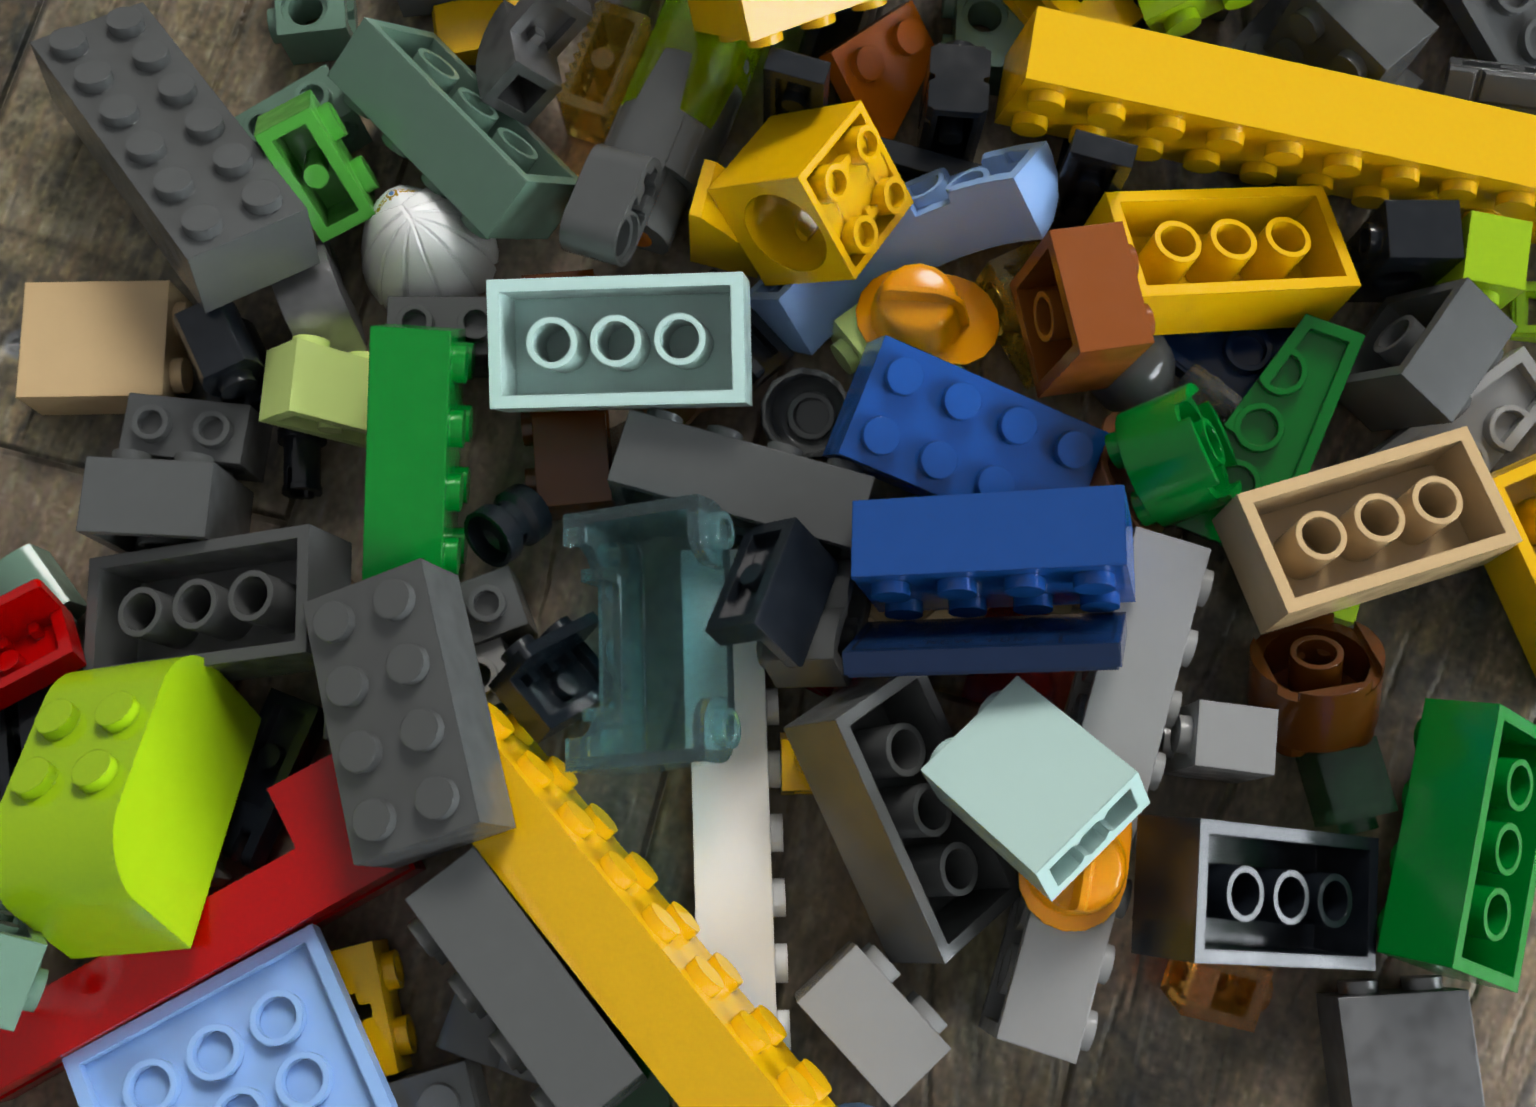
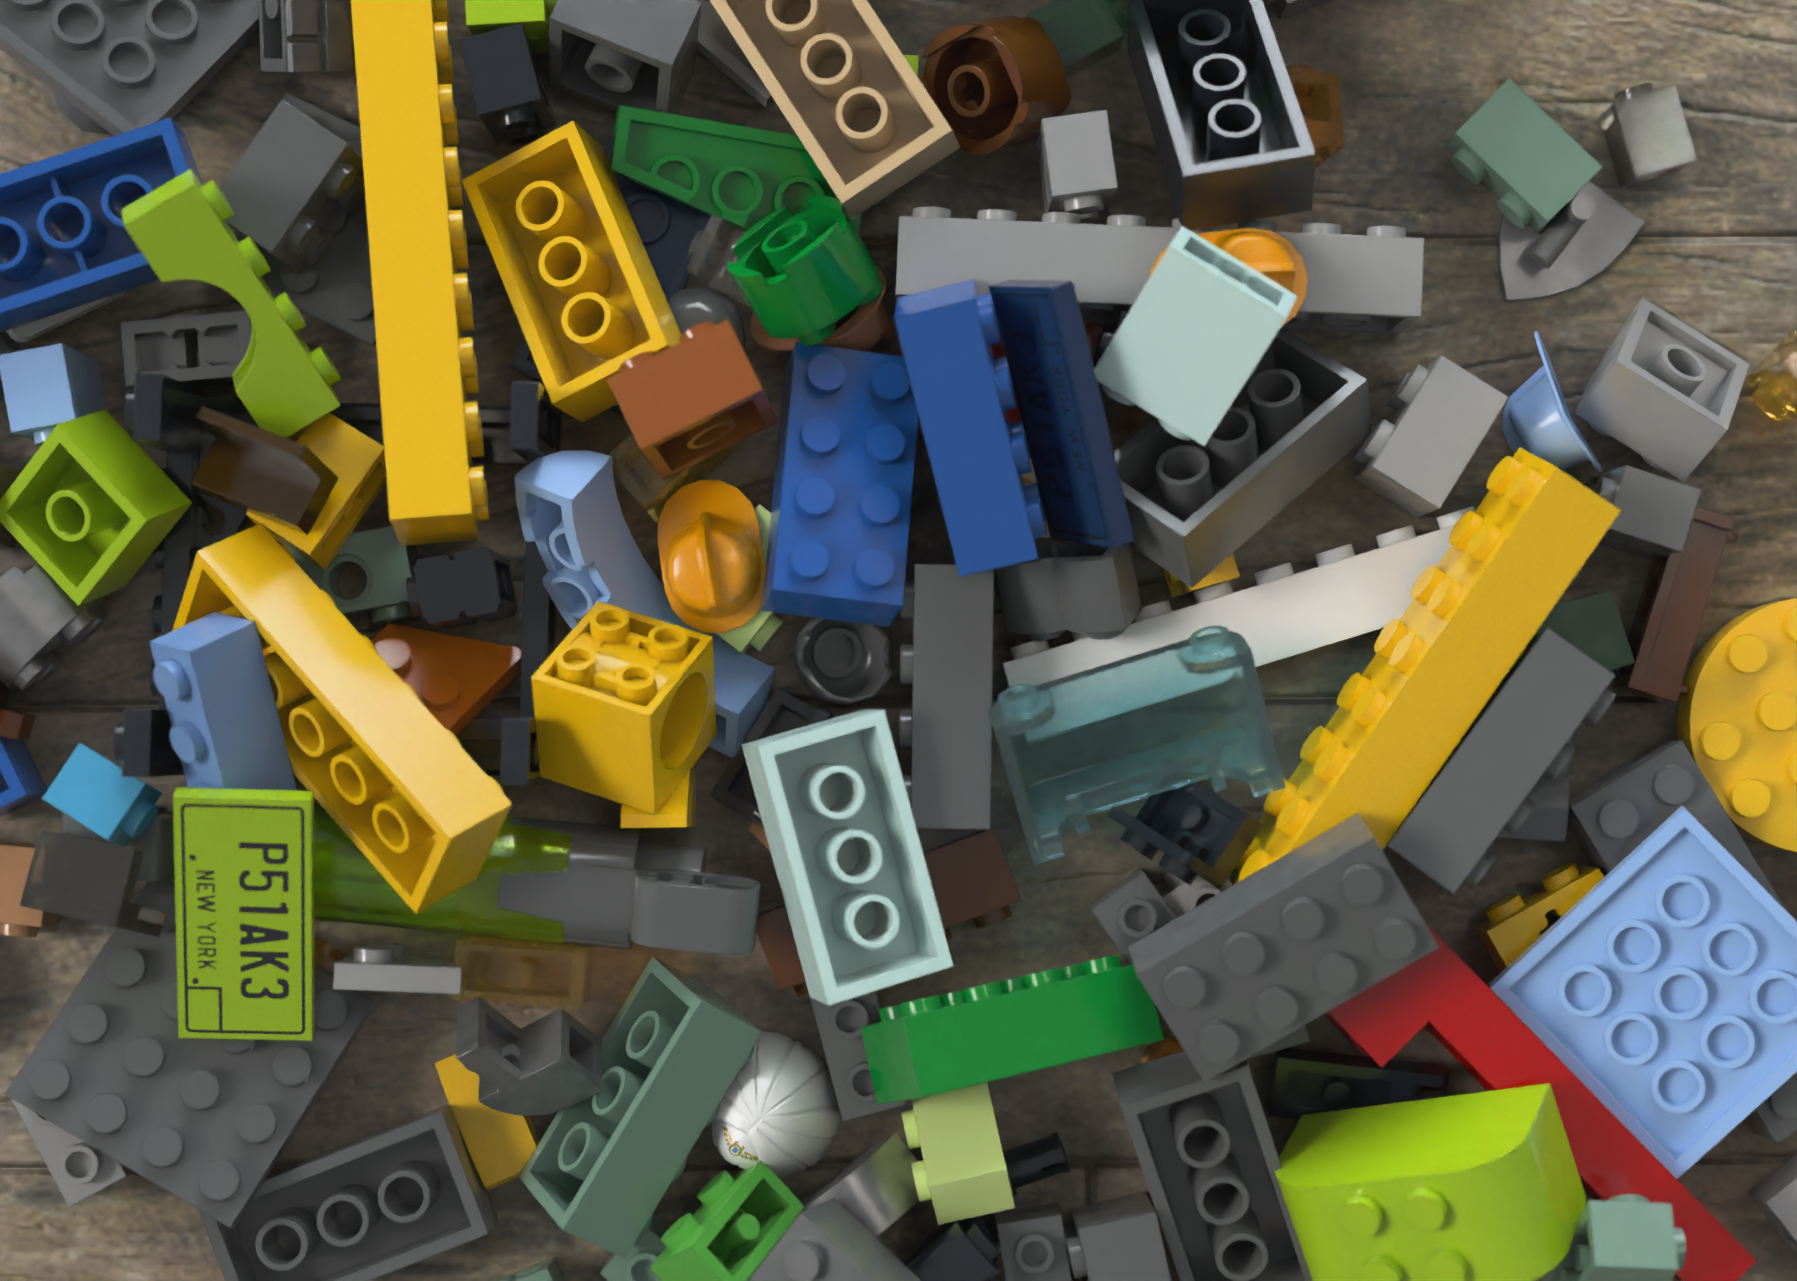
camera: 100 degrees left, 10 degrees up
(503, 528) = (1053, 925): black wheel -> none
(775, 590) = (1060, 631): black panel -> none

